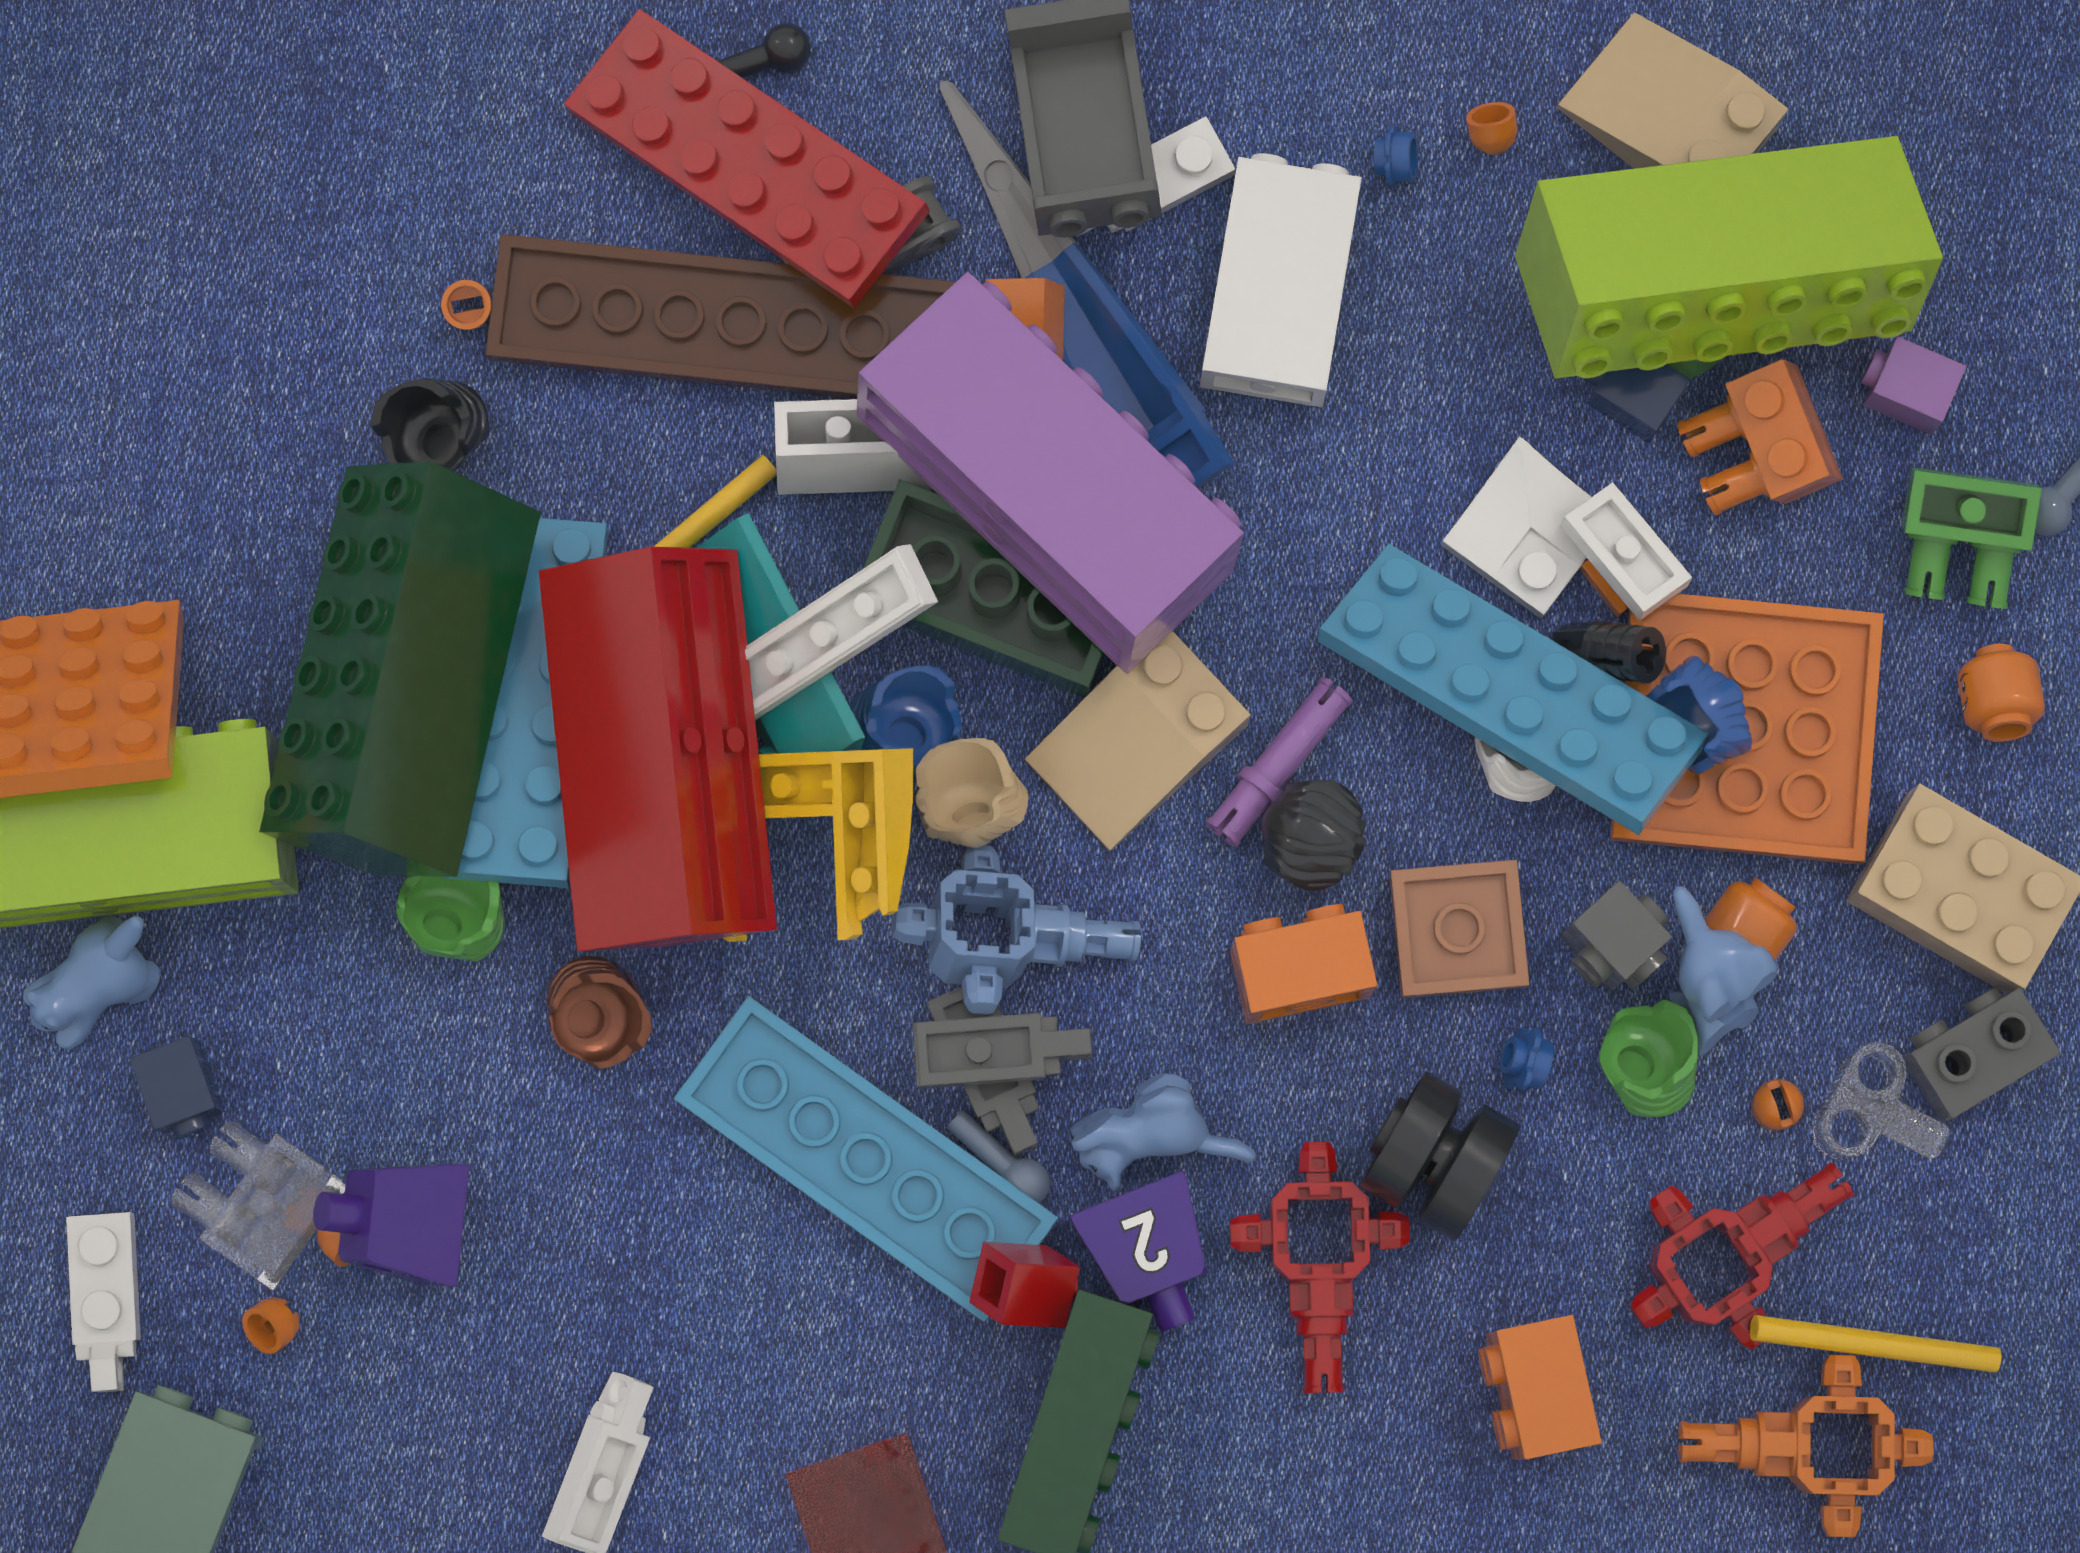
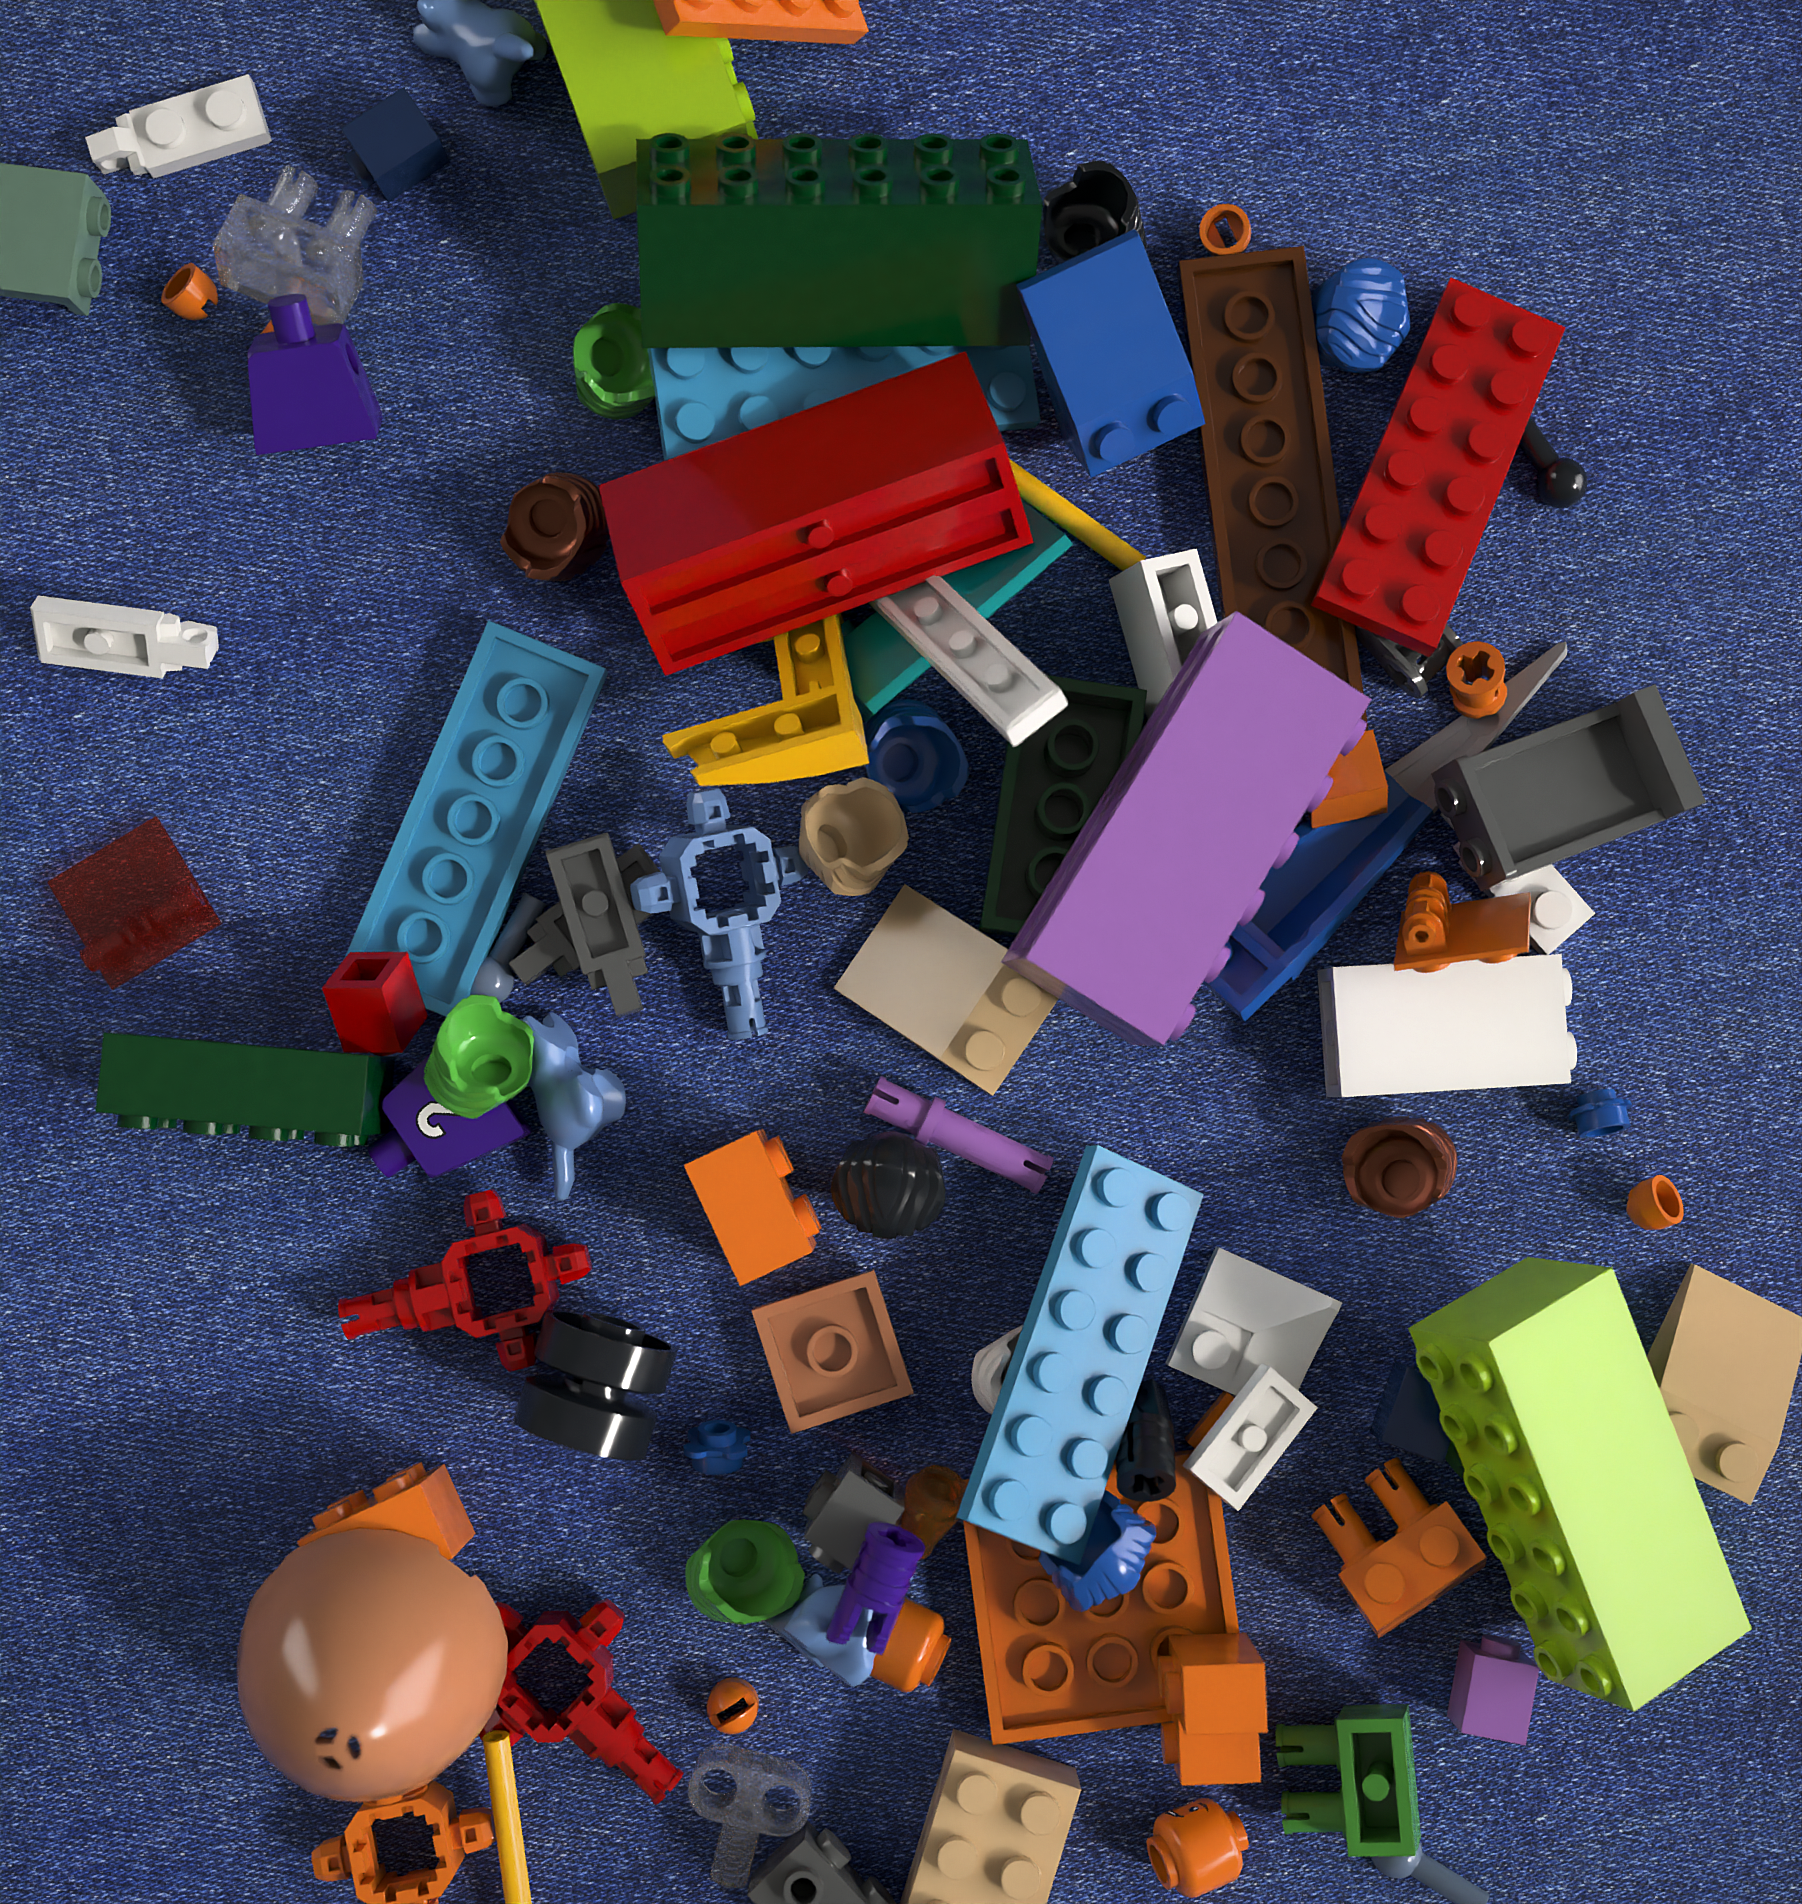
camera: 75 degrees right, 5 degrees up
(572, 438) = (1110, 354): none -> blue slope
(581, 197) = (1360, 316): none -> blue hair
(941, 174) = (1470, 664): none -> orange bush
(1104, 1189) = (479, 1057): none -> bright green hair
(1194, 257) = (1443, 933): none -> orange hinge
(1403, 353) = (1399, 1165): none -> copper hair
(1620, 1412) = (384, 1648): none -> nougat piece
(1626, 857) = (932, 1504): none -> clear orange cone
(1679, 914) = (877, 1583): none -> dark purple hinge
(1868, 641) = (1217, 1708): none -> orange brick

